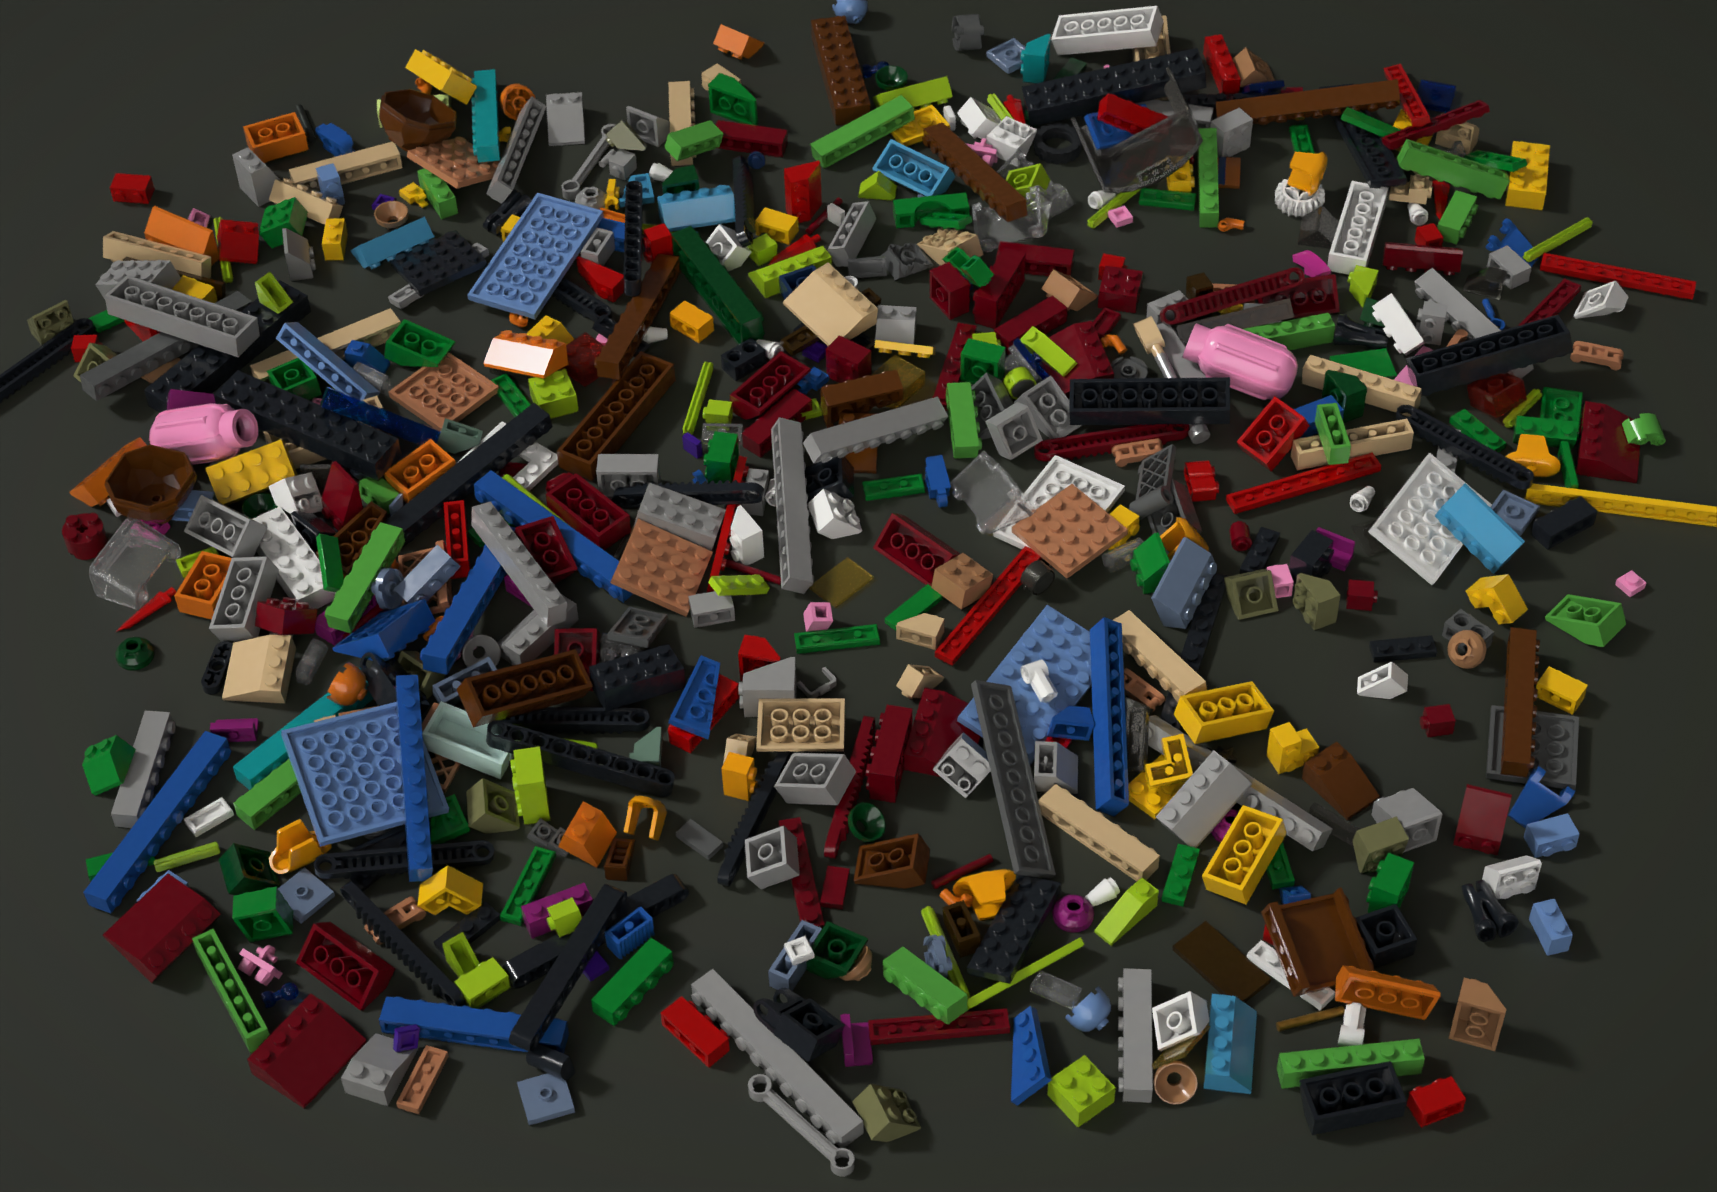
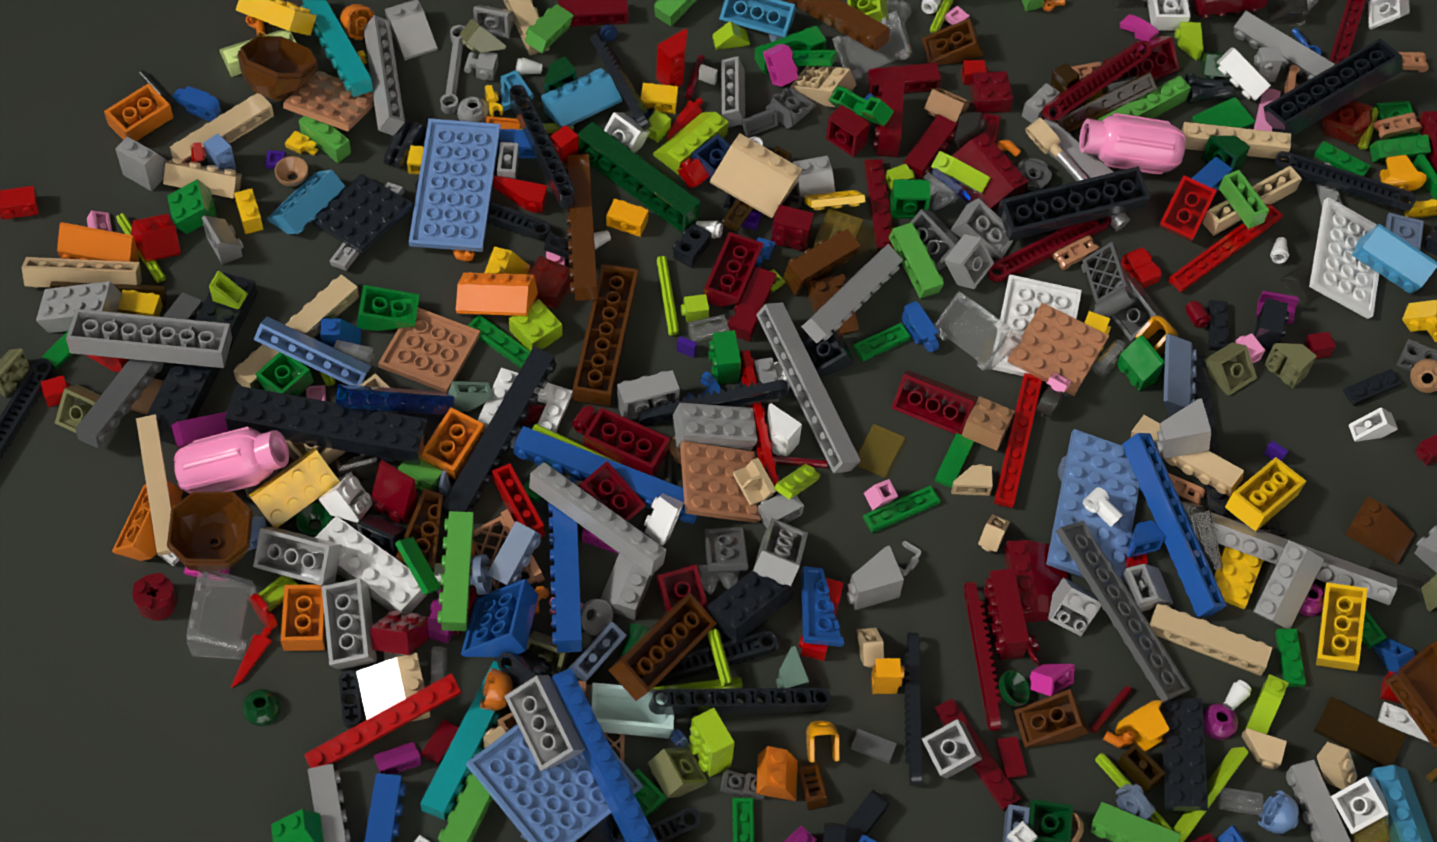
camera: 25 degrees left, 10 degrees up
(132, 426) = (155, 480): none -> tan tile
(173, 569) = (262, 611): none -> red tile
(235, 688) = (384, 722): none -> red plate
(279, 722) = (440, 742): none -> dark red tile
(310, 177) = (197, 152): none -> red plate
(372, 717) = (544, 722): none -> light grey slope
(504, 777) = (679, 738): none -> dark blue plate
(581, 717) = (719, 657): none -> lime axle
(588, 583) = (663, 518): none -> white slope
(683, 636) = (780, 552): none -> light grey brick
(694, 574) = (754, 482): none -> tan panel
(755, 653) = (850, 553): red slope -> none
(774, 294) = (692, 172): none -> red brick
(801, 725) = (917, 610): tan slope -> none
(815, 778) = (955, 660): light grey brick -> none
(834, 515) = (846, 386): white slope -> none
(904, 792) = (1032, 648): none -> dark red plate
(908, 822) = (1052, 678): none -> dark pink slope
(911, 219) = (780, 65): none -> dark pink brick
(1019, 381) = (948, 209): lime piece -> none
(1050, 557) = (1059, 382): none -> bright pink plate
(1079, 312) = (969, 127): none -> clear smoke slope
(1107, 237) = (953, 44): none -> reddish brown slope
(1107, 947) = (1265, 748): none -> tan slope
(1154, 627) = (1185, 432): none -> light grey slope
(1170, 976) = (1337, 766): none -> tan brick
(1175, 767) = (1253, 561): yellow brick -> none
(1261, 680) = (1275, 450): none -> dark purple tile
(1290, 748) = (1330, 512): yellow brick -> none
(1555, 409) = (1397, 125): none -> nougat plate

